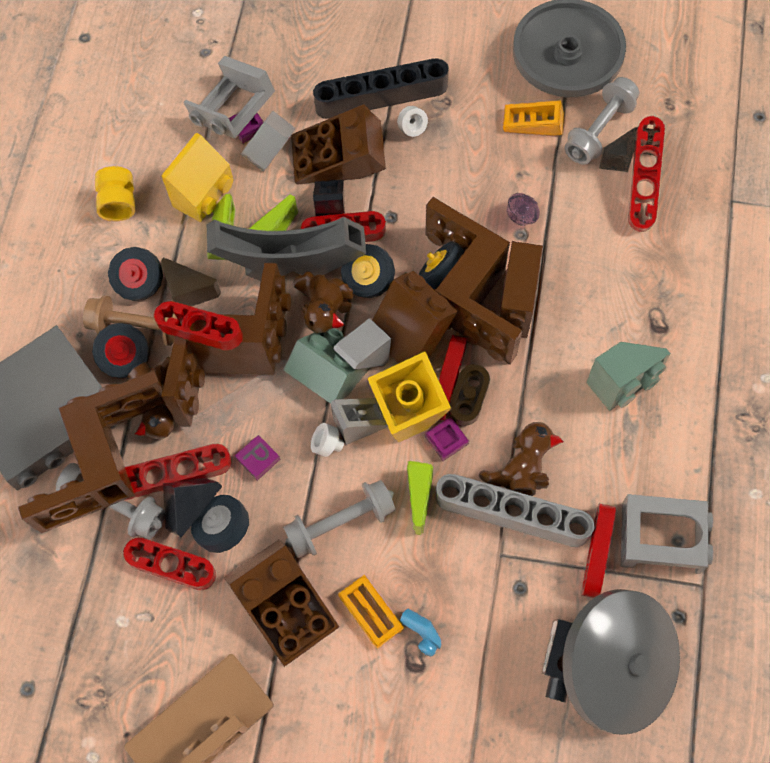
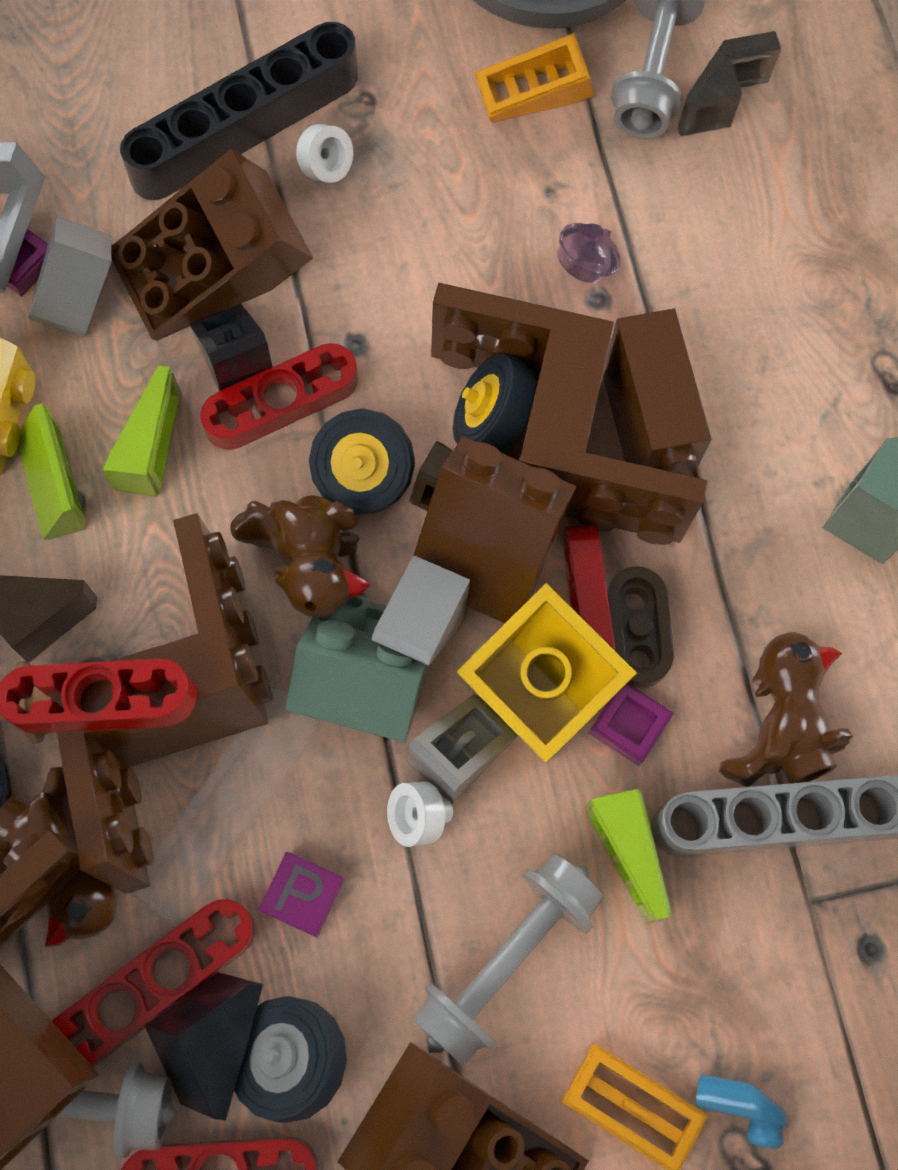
camera: 30 degrees left, 5 degrees up
(300, 250) = (214, 473): dark grey arch -> none
(648, 174) = (784, 117): red beam -> none

